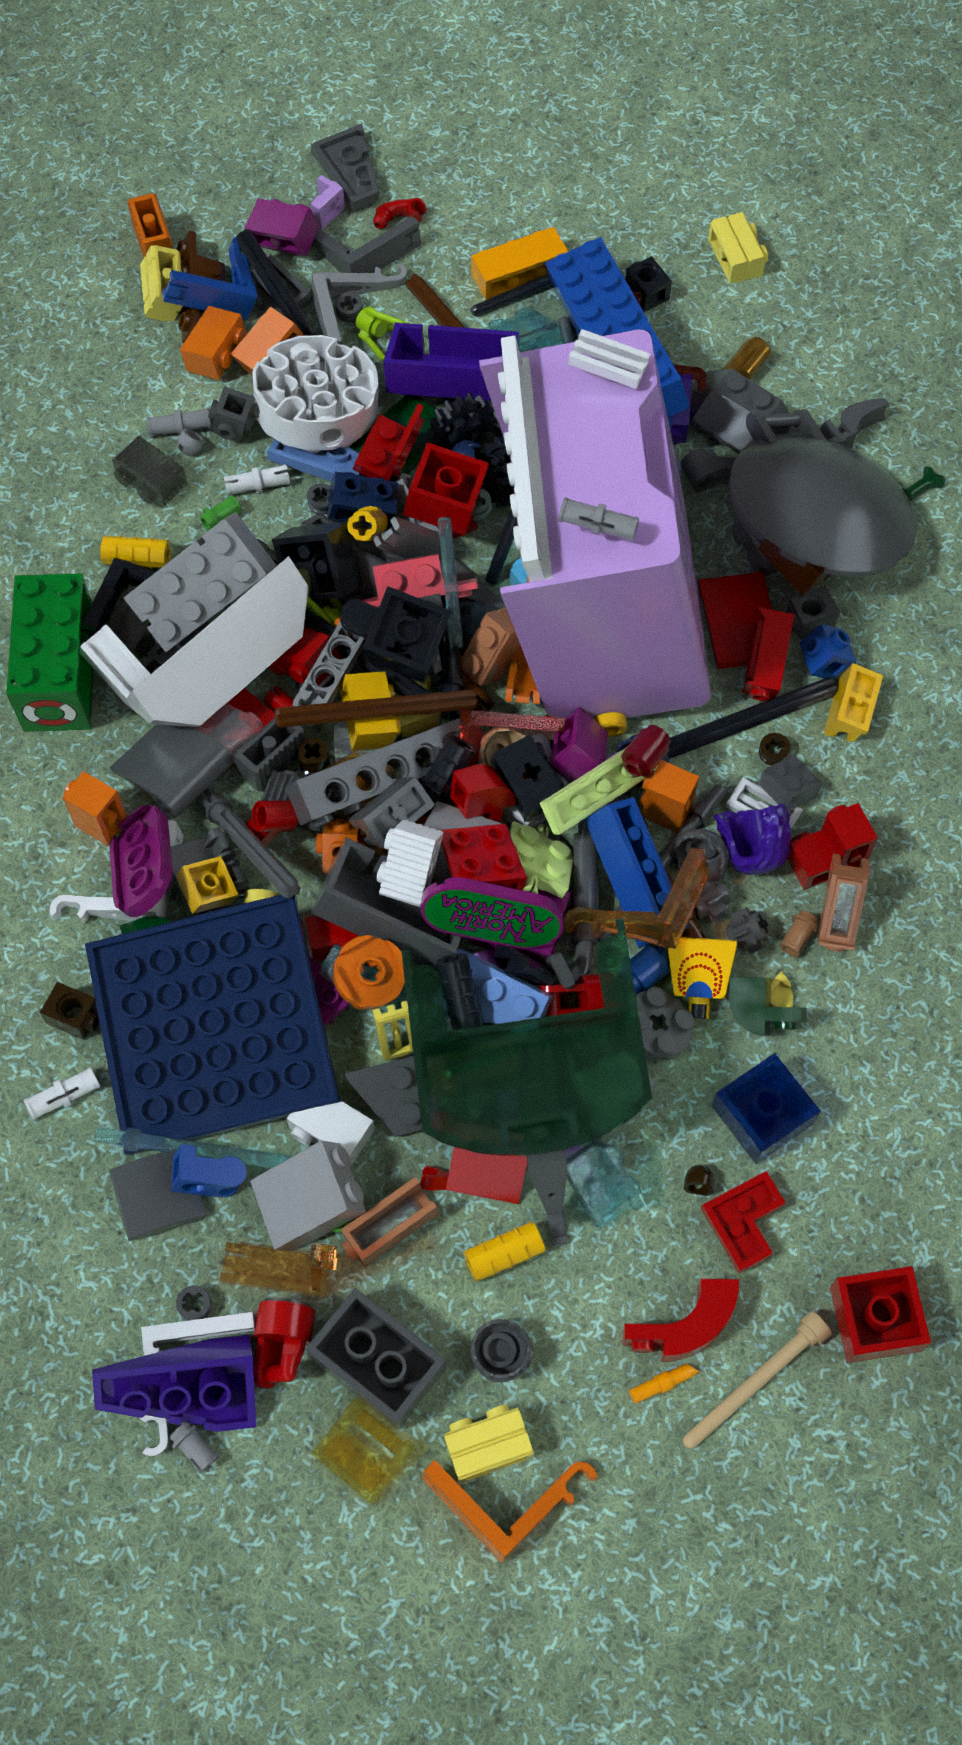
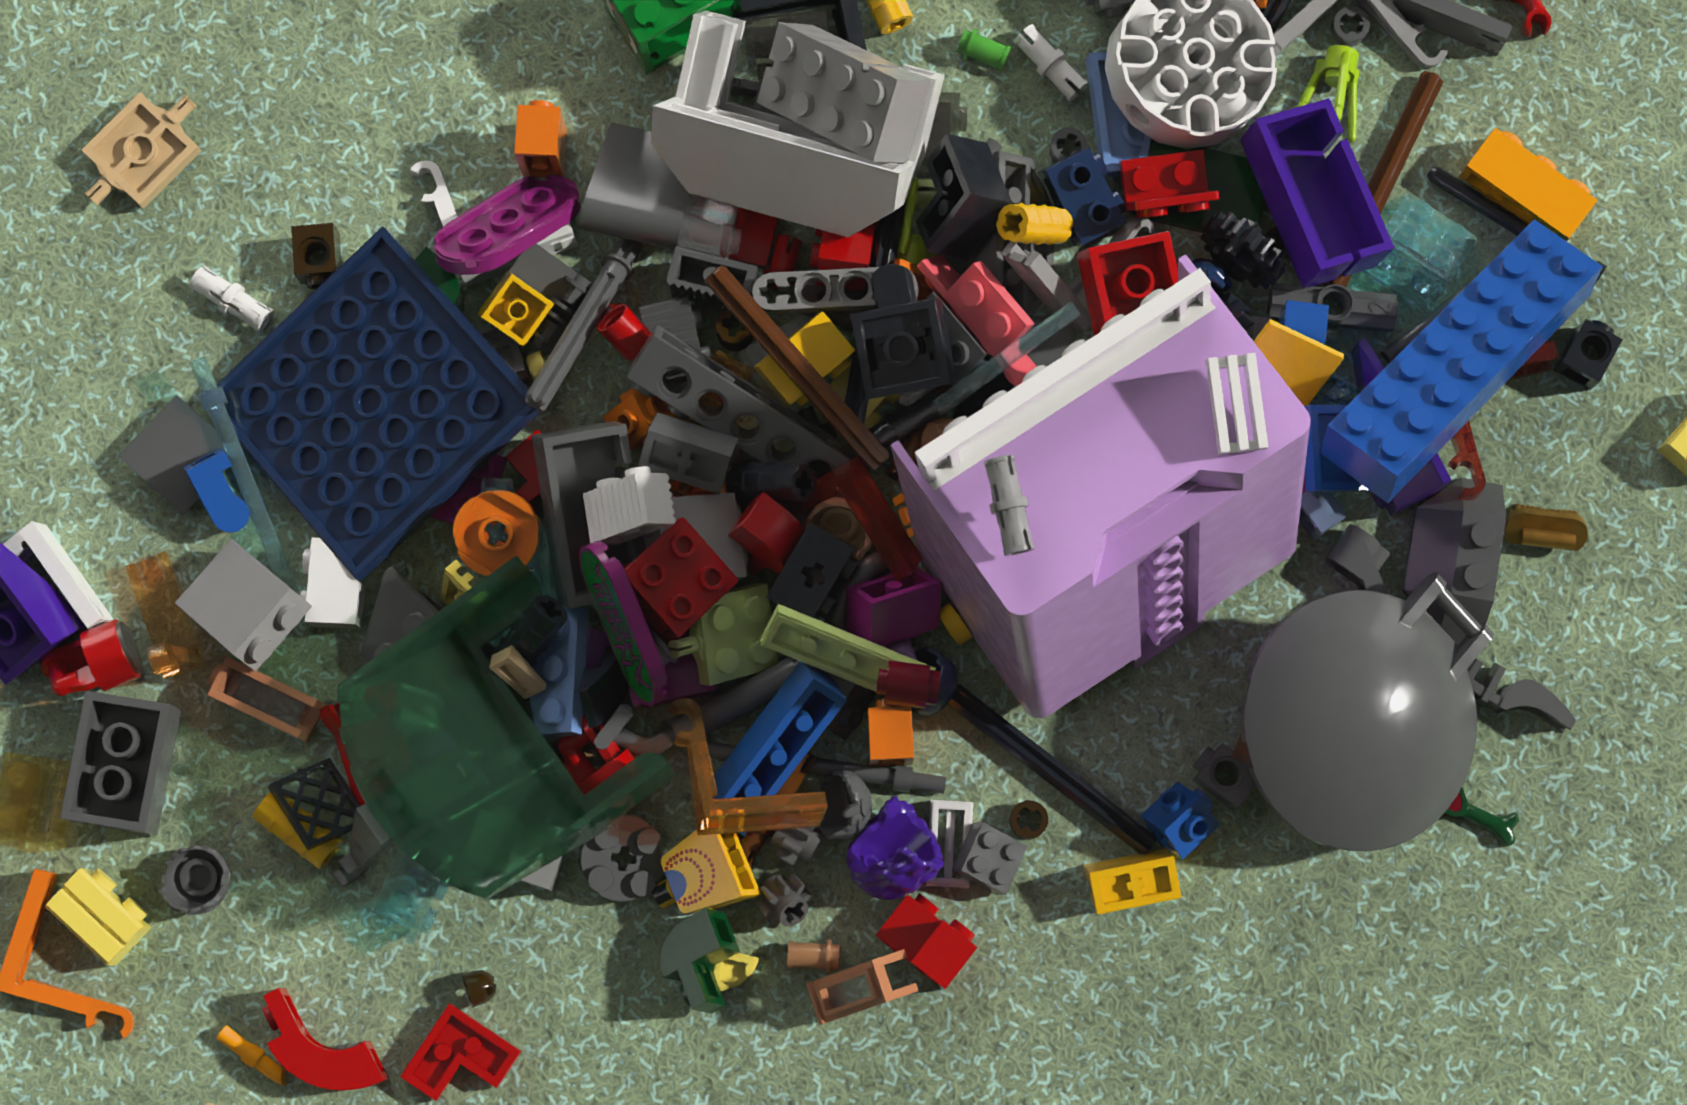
camera: 60 degrees right, 15 degrees up
(195, 1292) = (101, 547): dark grey bush -> none
(482, 1013) = (517, 672): none -> tan piece
(500, 1240) = (295, 818): none -> black window
(649, 967) = (672, 811): blue brick -> none
(729, 612) = (1177, 699): red tile -> none
(765, 1108) = (584, 1018): clear blue brick -> none
(767, 653) = (1135, 754): red window -> none

